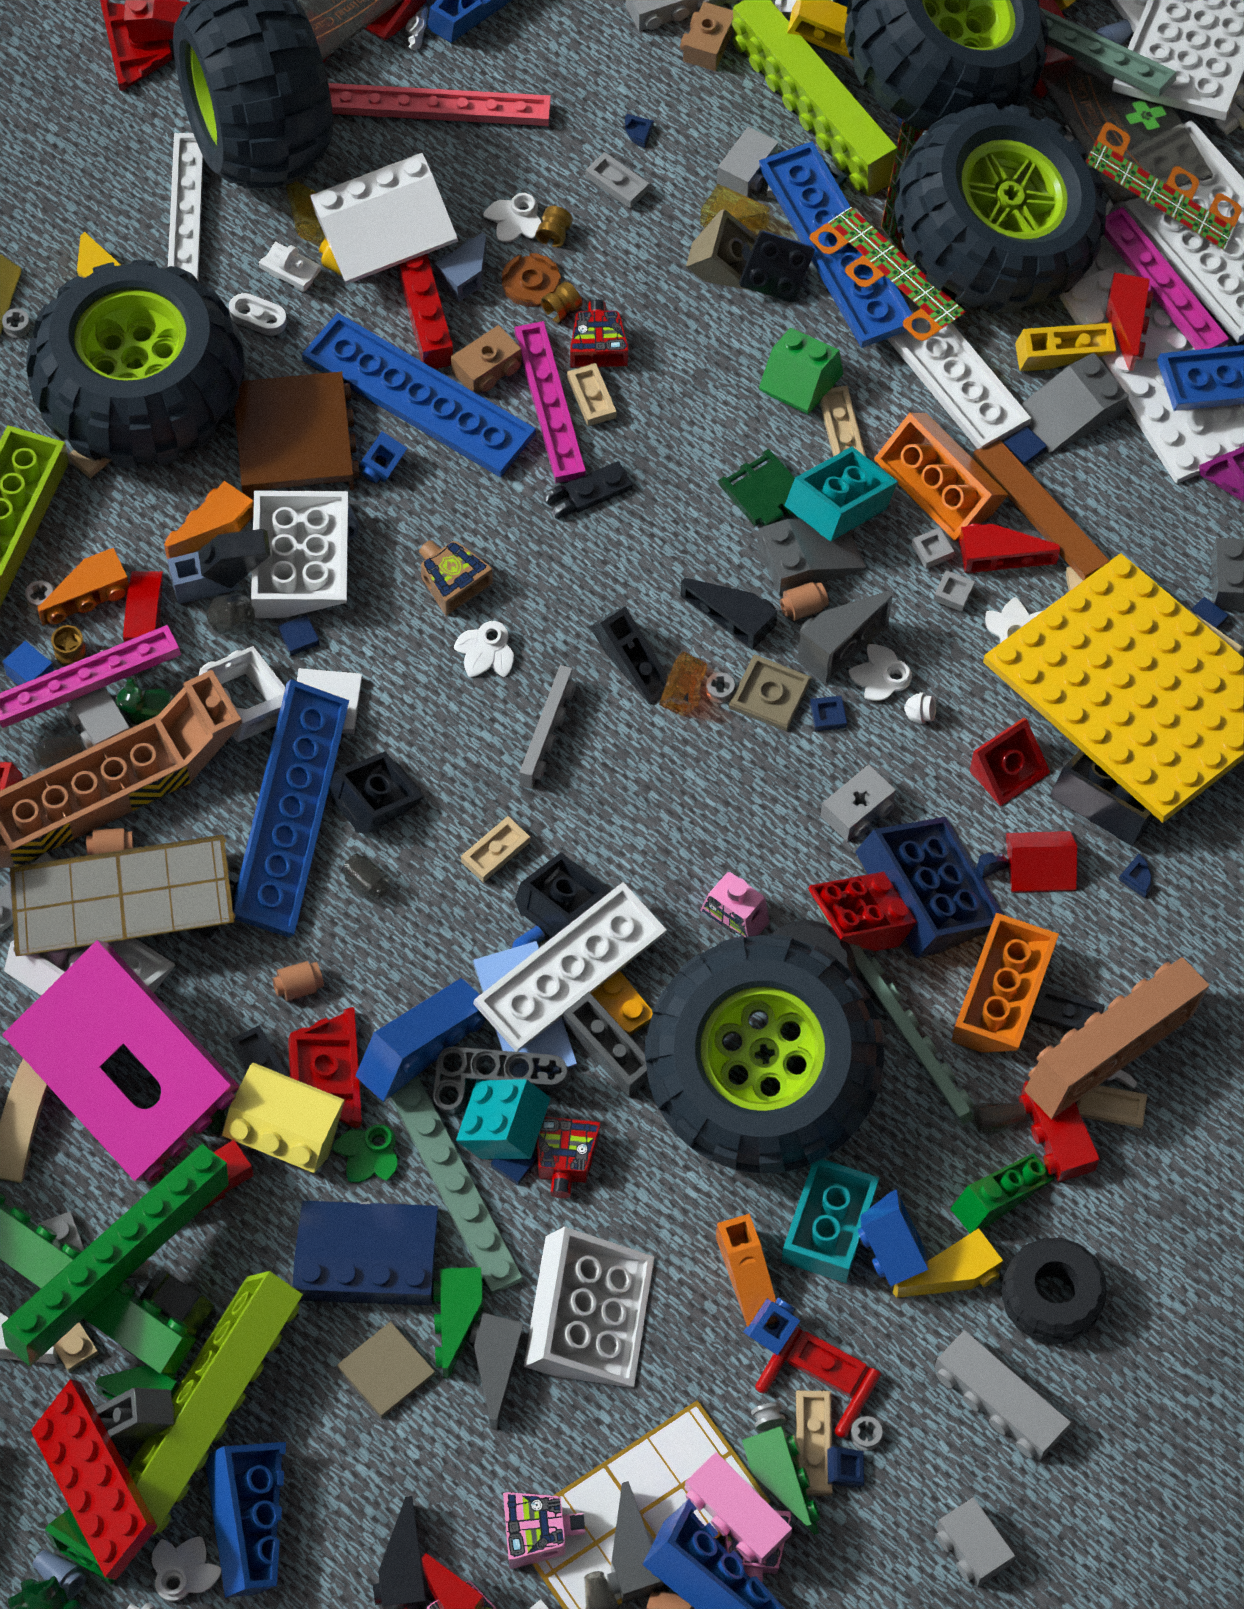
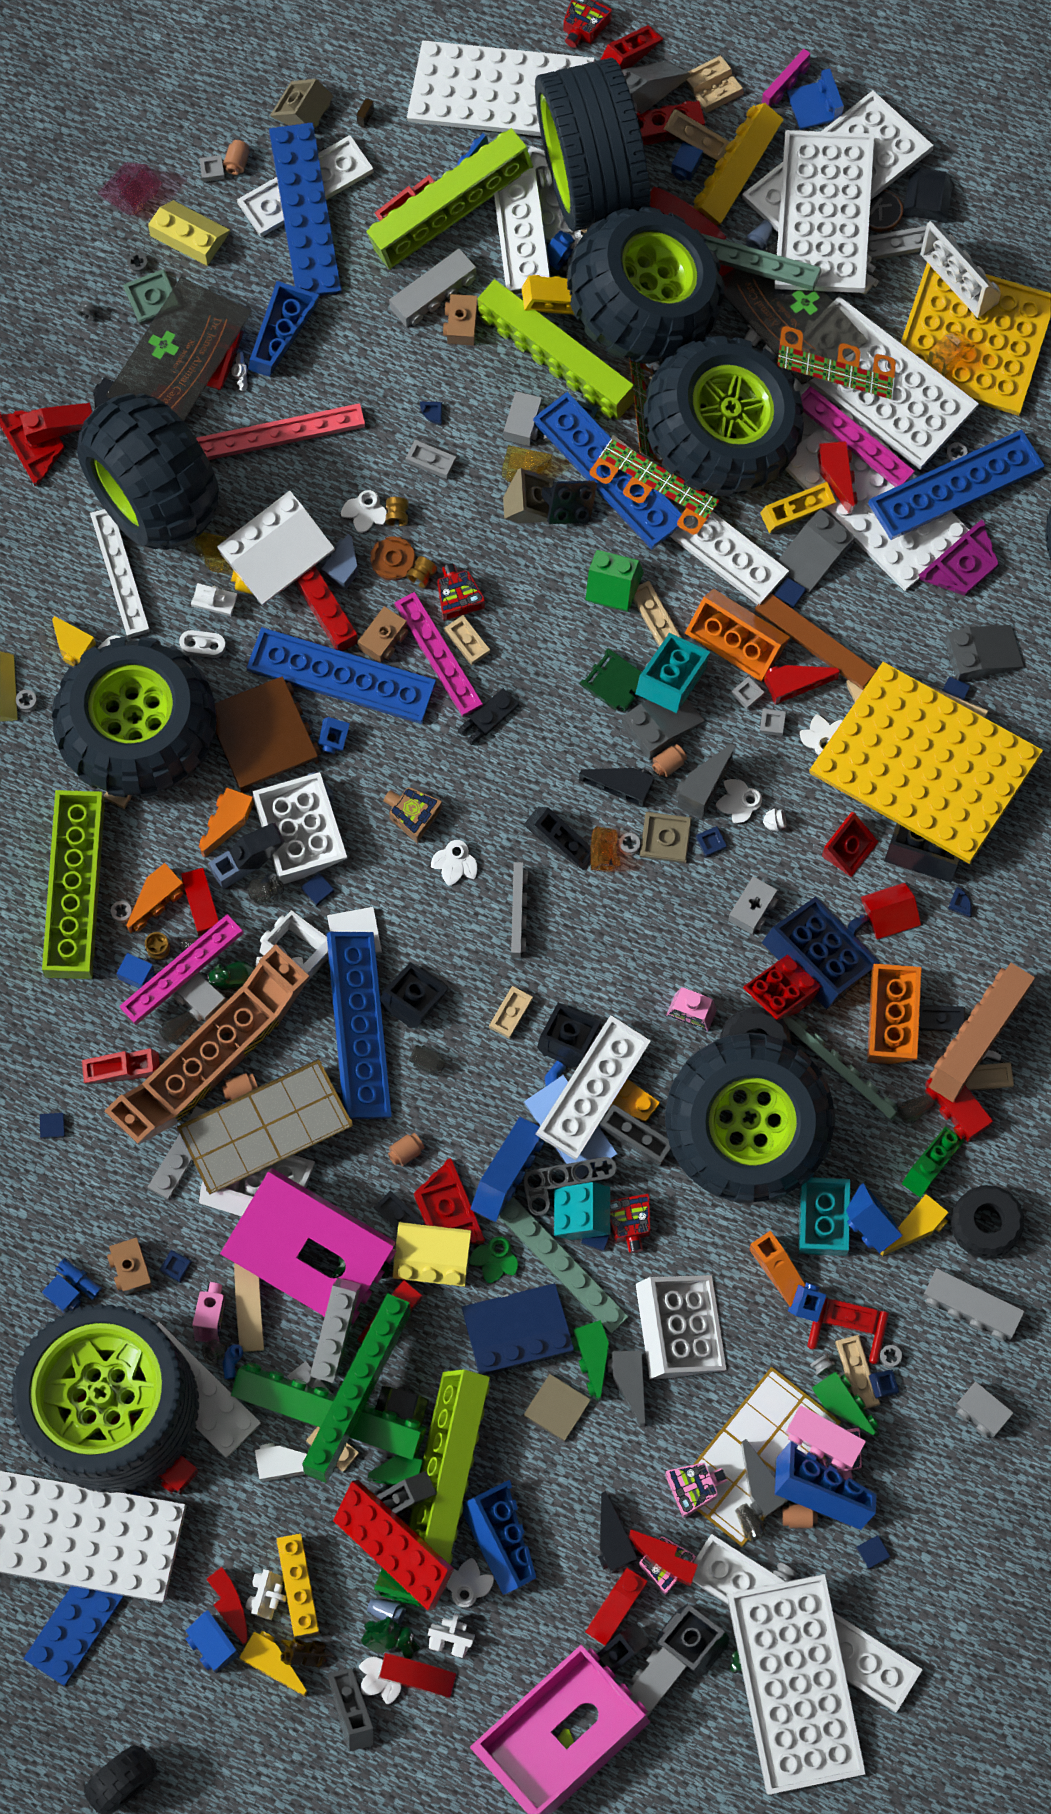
camera: 15 degrees left, 10 degrees up
(119, 1173) = (335, 1330): none -> light grey brick

